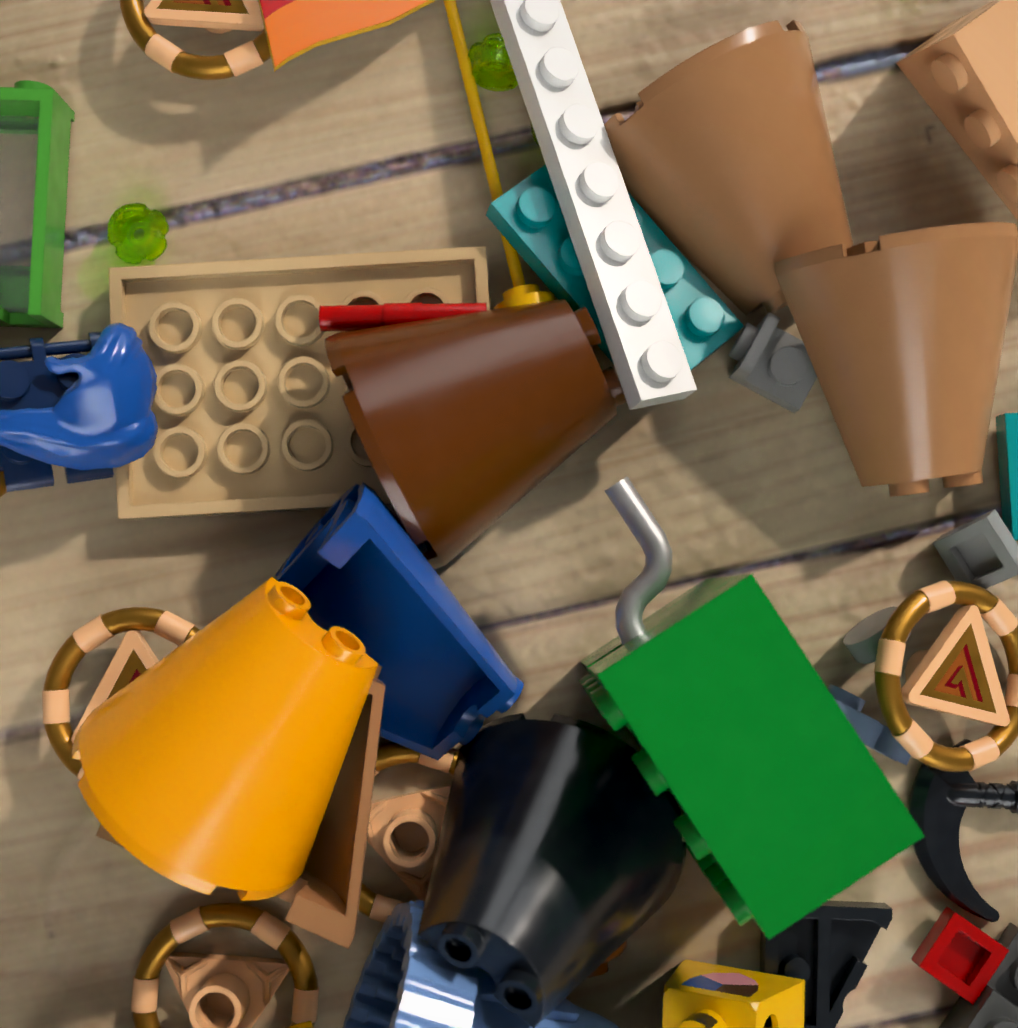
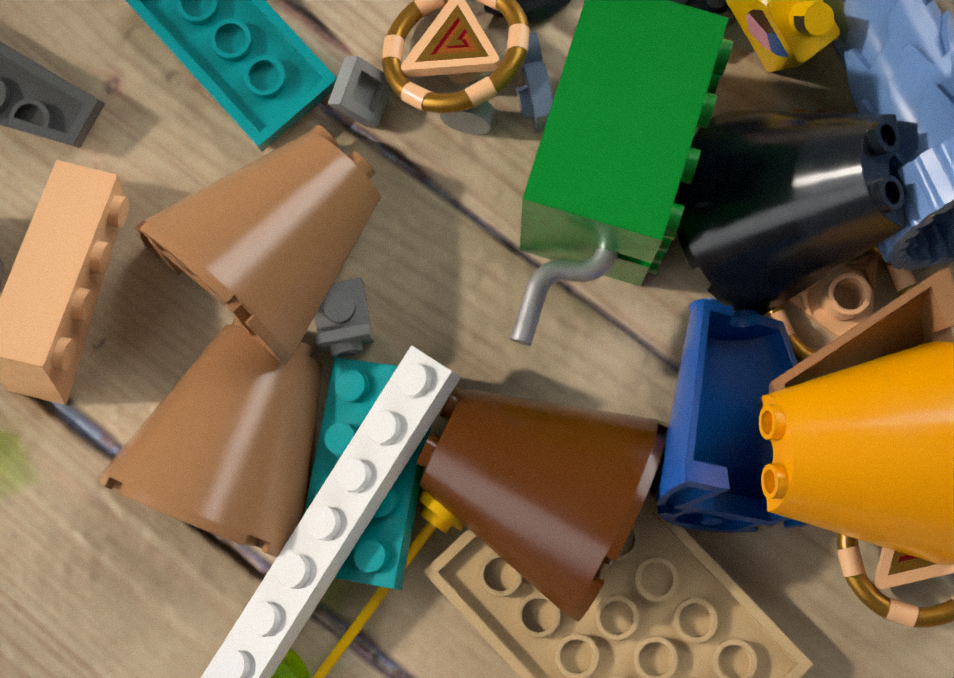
camera: 125 degrees left, 5 degrees down
(369, 316) = (523, 592): red piece -> none

